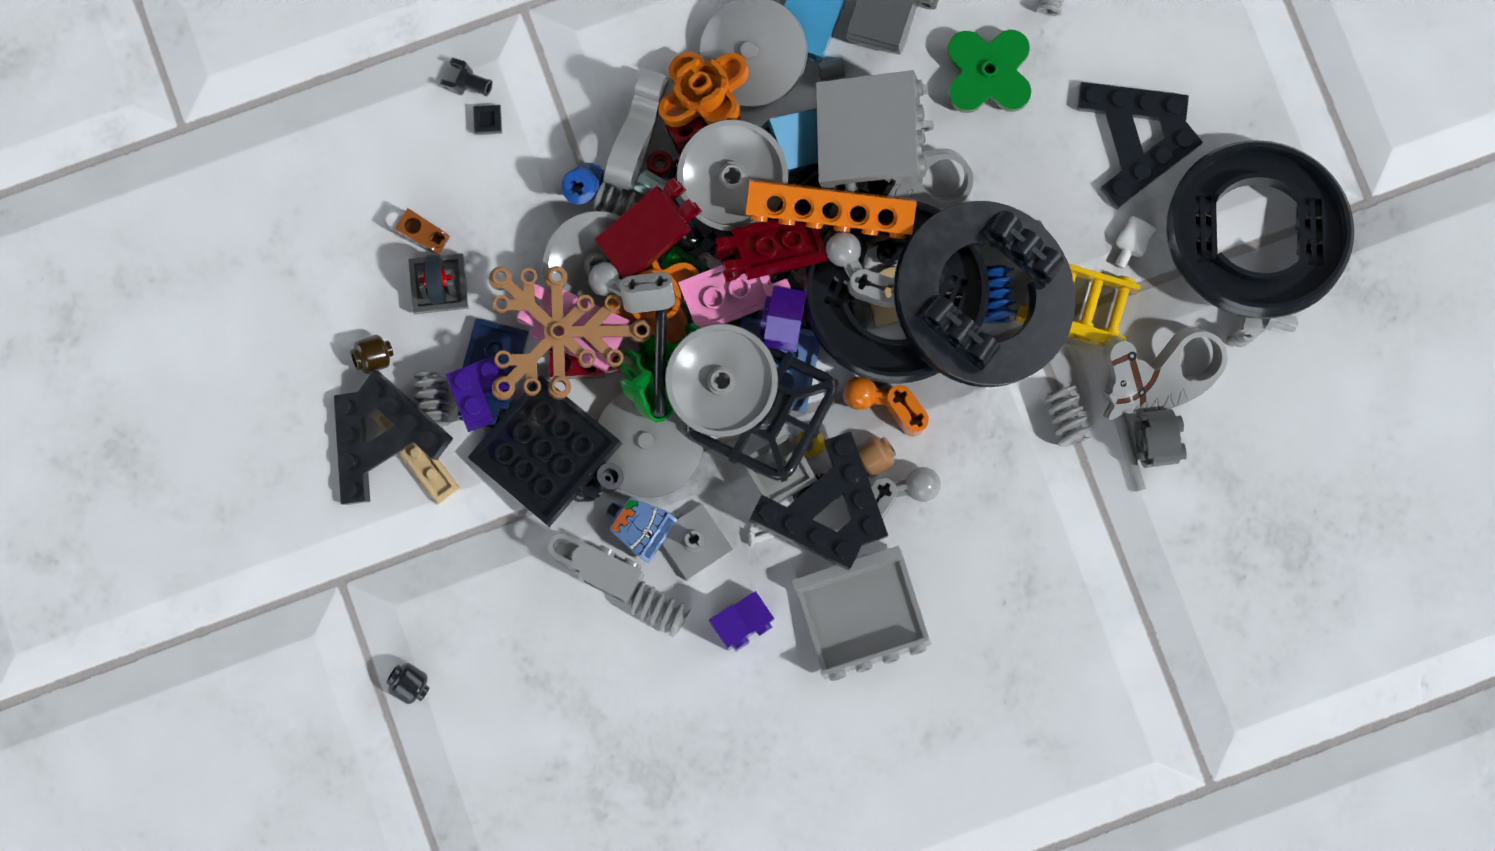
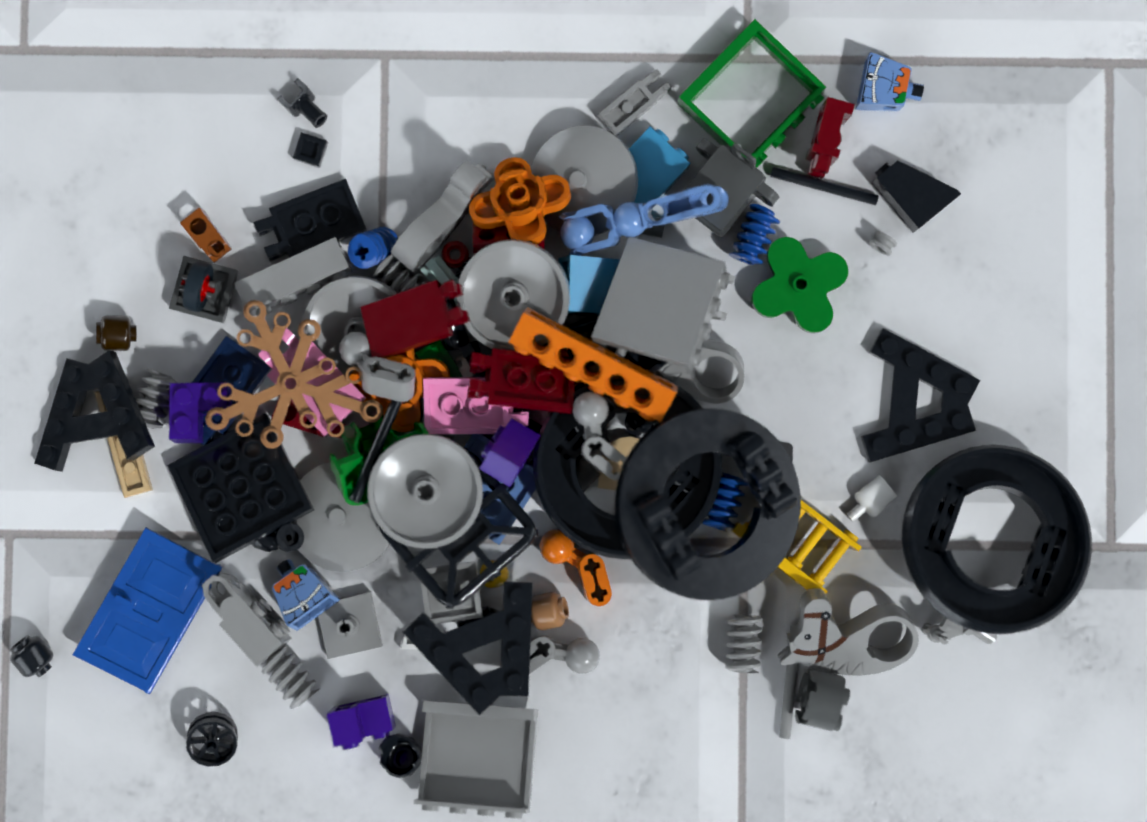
camera: 20 degrees right, 5 degrees up
(500, 599) = (146, 611): none -> blue door
(515, 183) = (312, 220): none -> black tile
(520, 237) = (294, 276): none -> light grey brick
(608, 694) = (212, 739): none -> black wheel
(789, 641) = (400, 755): none -> black hair
(814, 64) = (633, 218): none -> medium blue piece
(929, 42) = (754, 235): none -> blue piece

